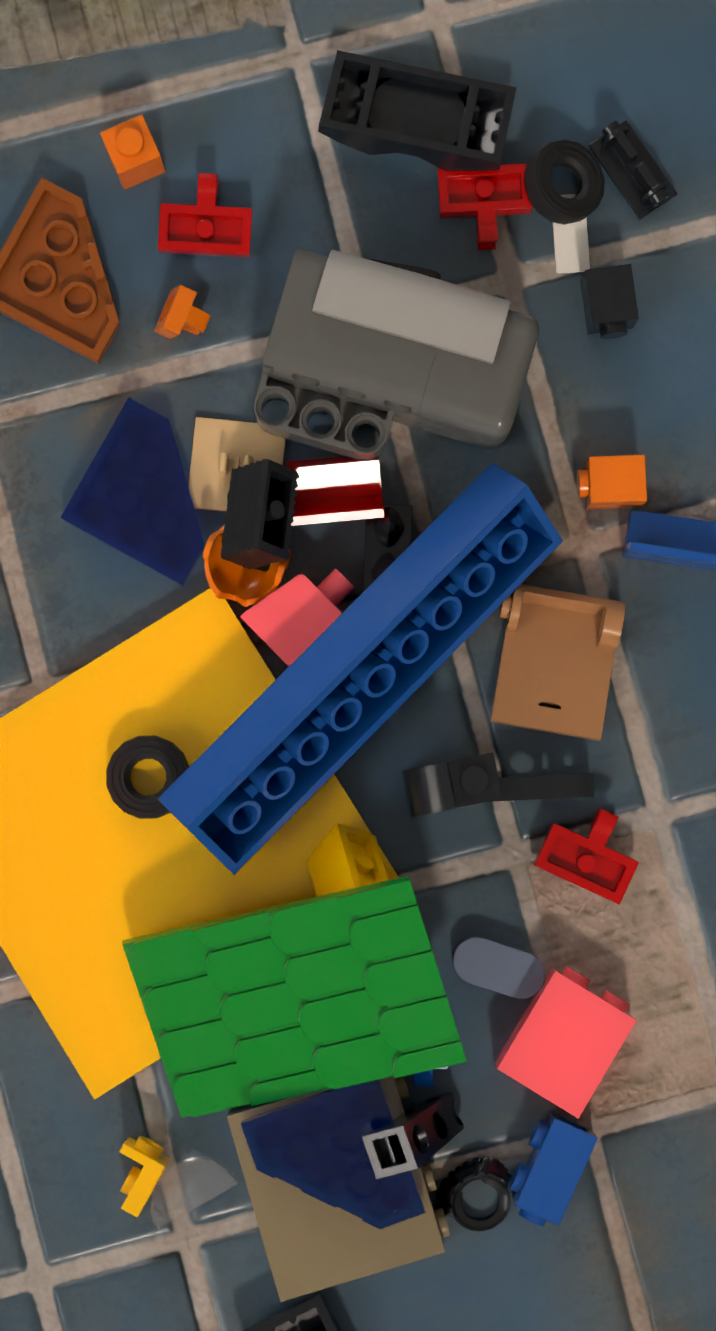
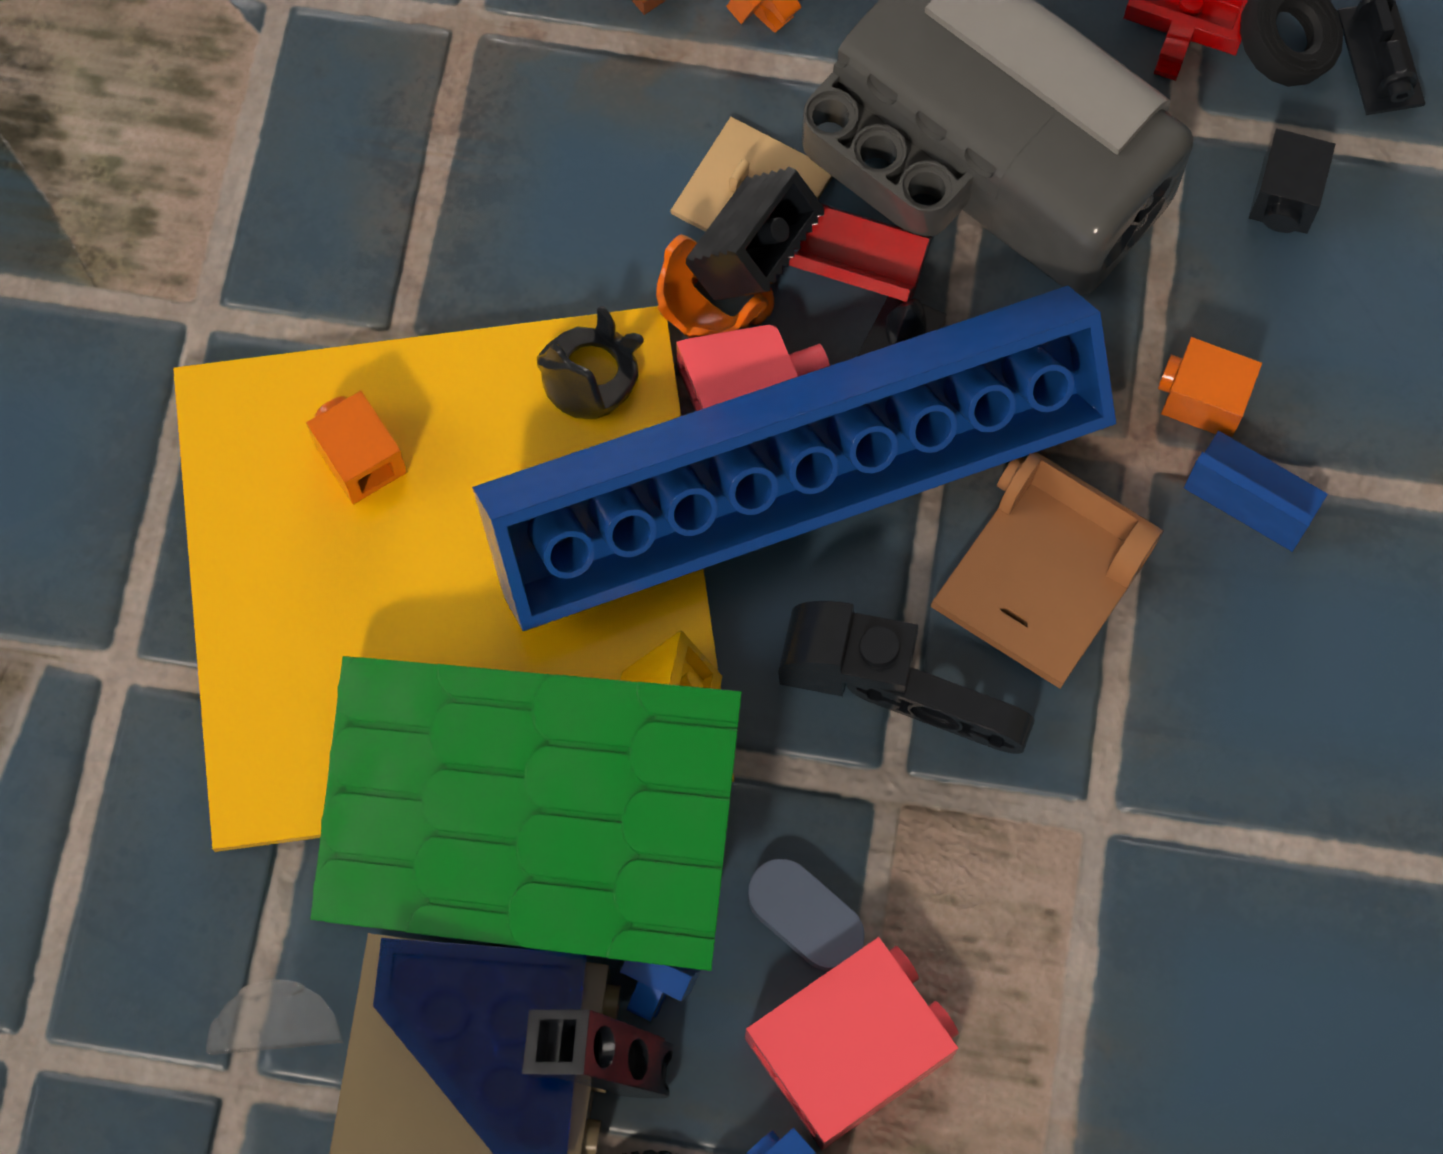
camera: 25 degrees right, 15 degrees down
(55, 788) = (356, 446): none -> orange brick
(126, 758) = (446, 458): black tyre -> none
(140, 496) = (621, 171): clear blue plate -> none
(142, 1182) = (220, 977): yellow bracket -> none
(185, 681) = (575, 387): none -> black piece
(571, 245) = (1269, 109): white sticker -> none
(587, 859) = (982, 826): red plate -> none

